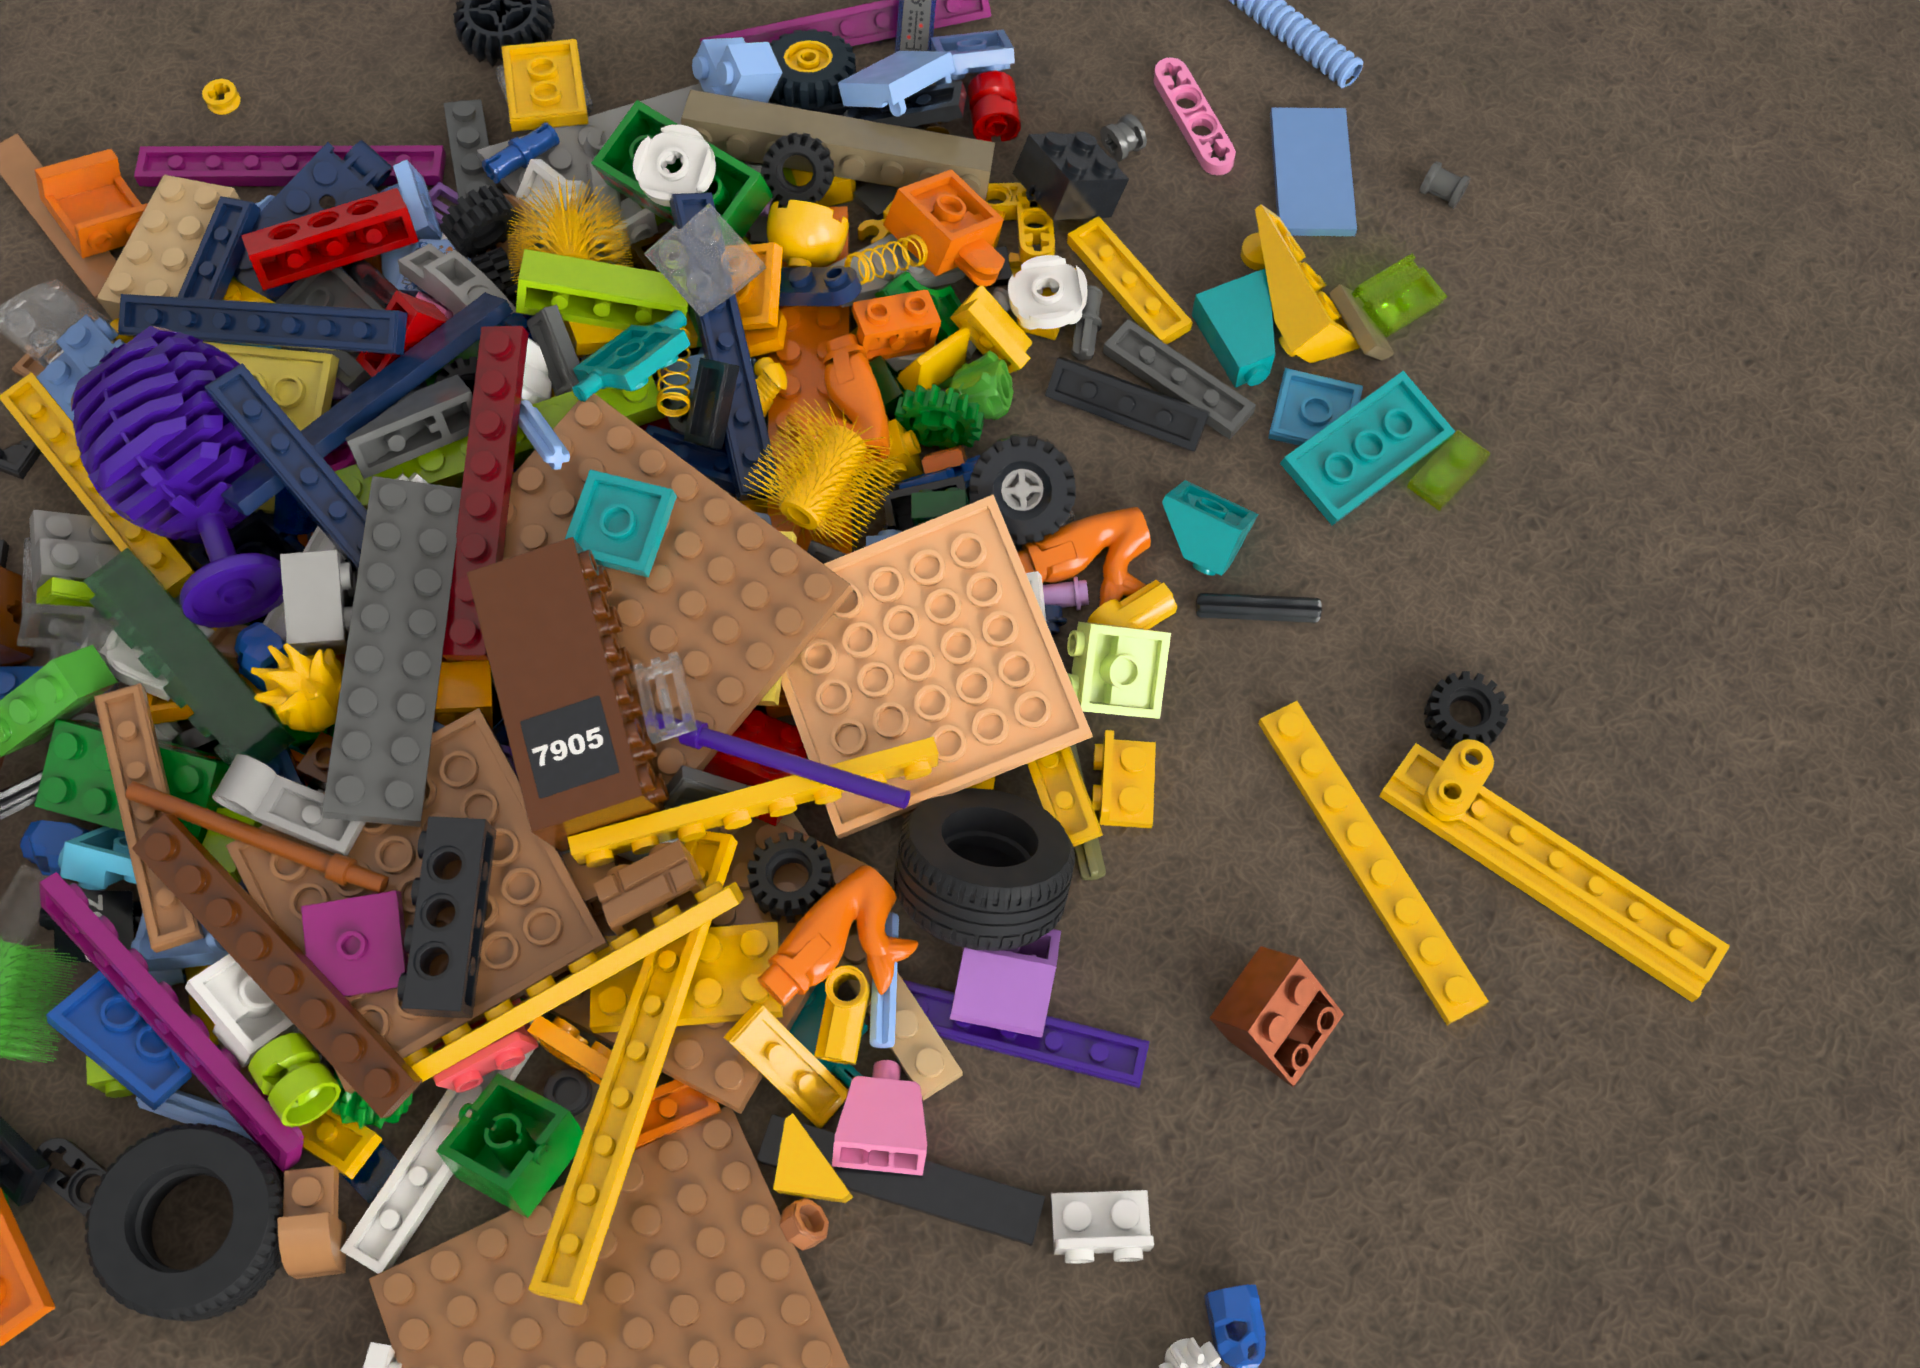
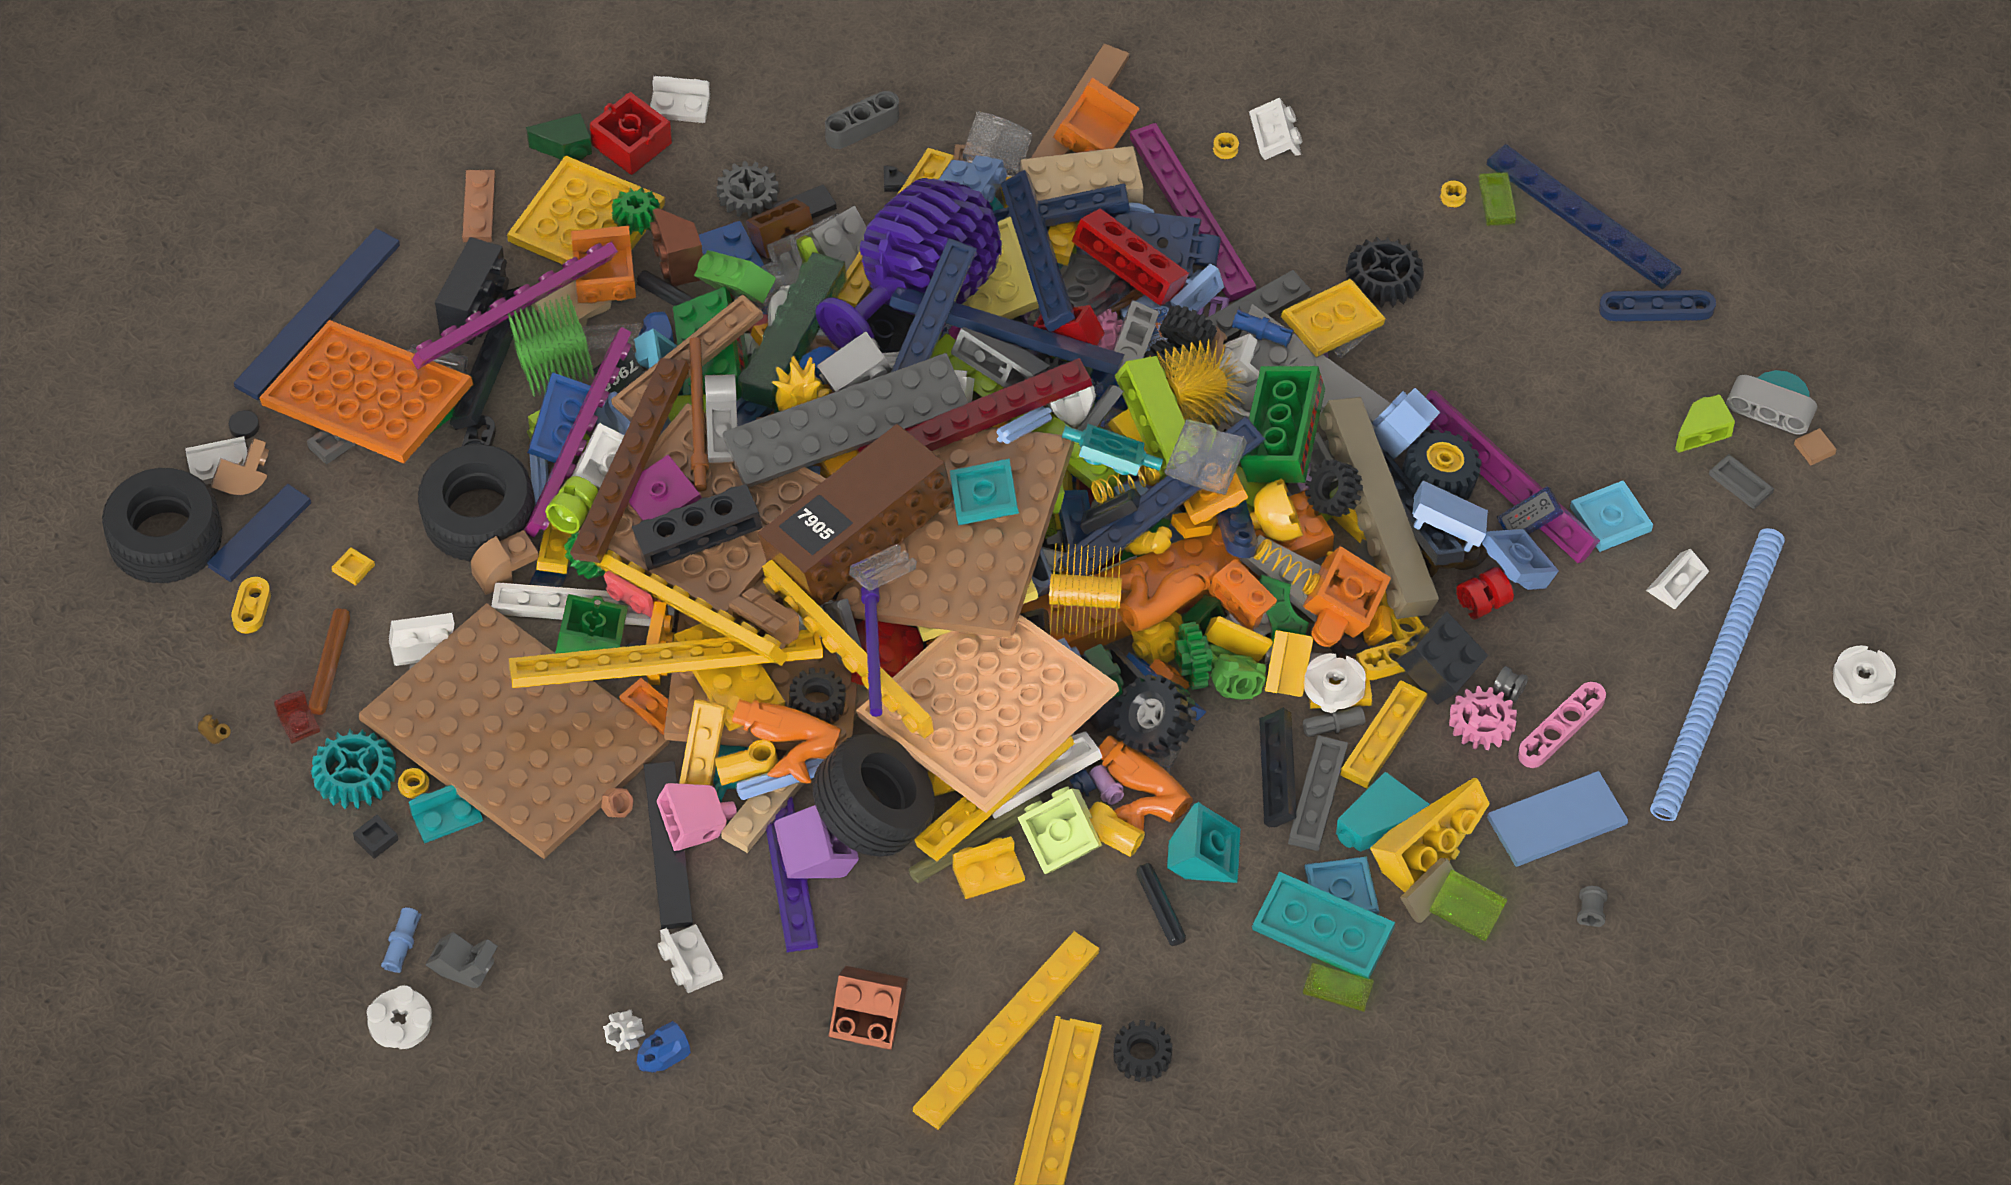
camera: 65 degrees right, 10 degrees down
(233, 39) = (1275, 129): none -> white bracket
(664, 149) = (1284, 420): white plate -> none
(804, 1169) = (648, 782): yellow slope -> none
(1155, 177) = (1484, 720): none -> bright pink gear
(1461, 778) = (1083, 1055): yellow plate -> none

